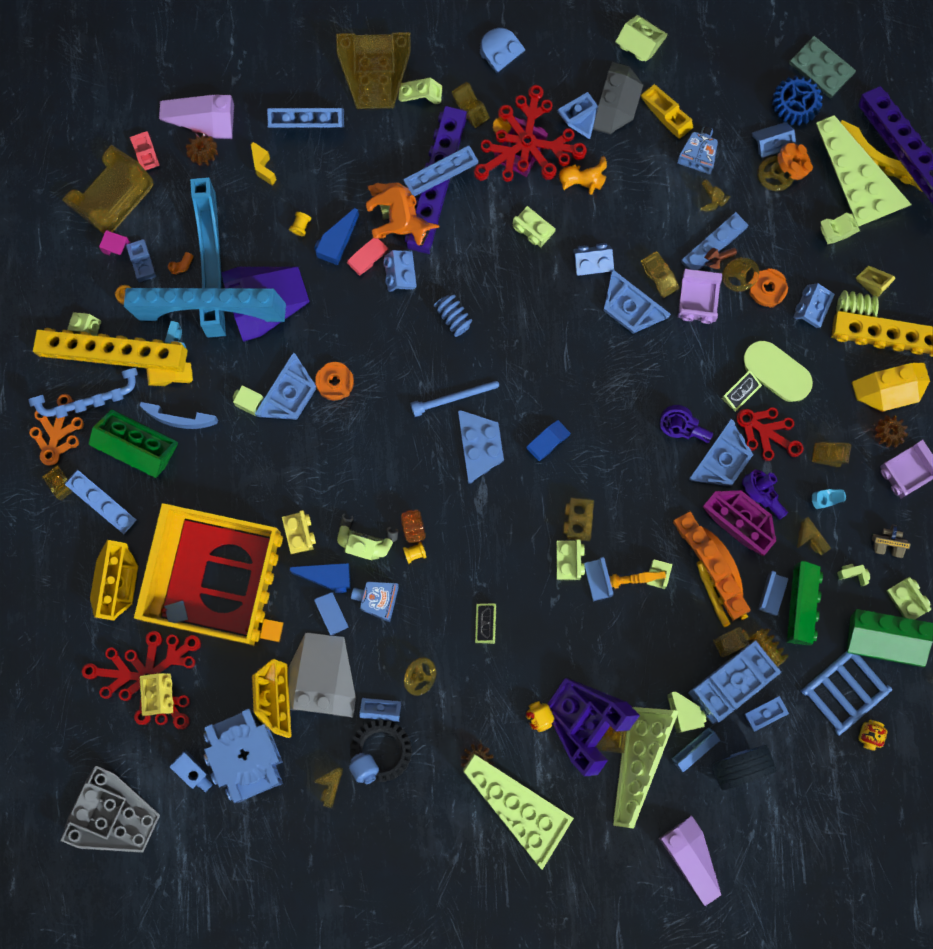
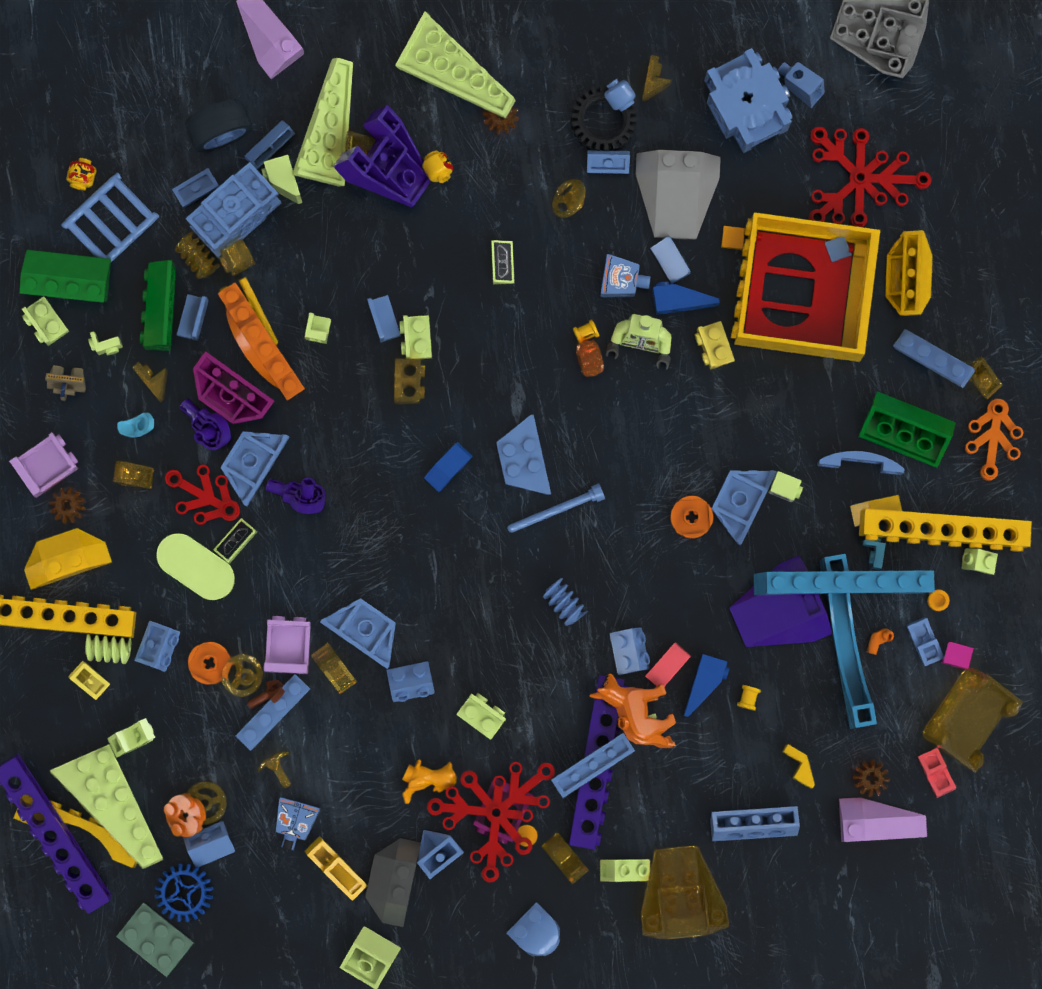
camera: 170 degrees right, 5 degrees up
(80, 405) = (971, 466): medium blue bar -> none
(156, 694) = (847, 157): light yellow bracket -> none
(272, 697) = (723, 160): yellow wedge -> none
(636, 578) = (336, 319): light orange piece -> none

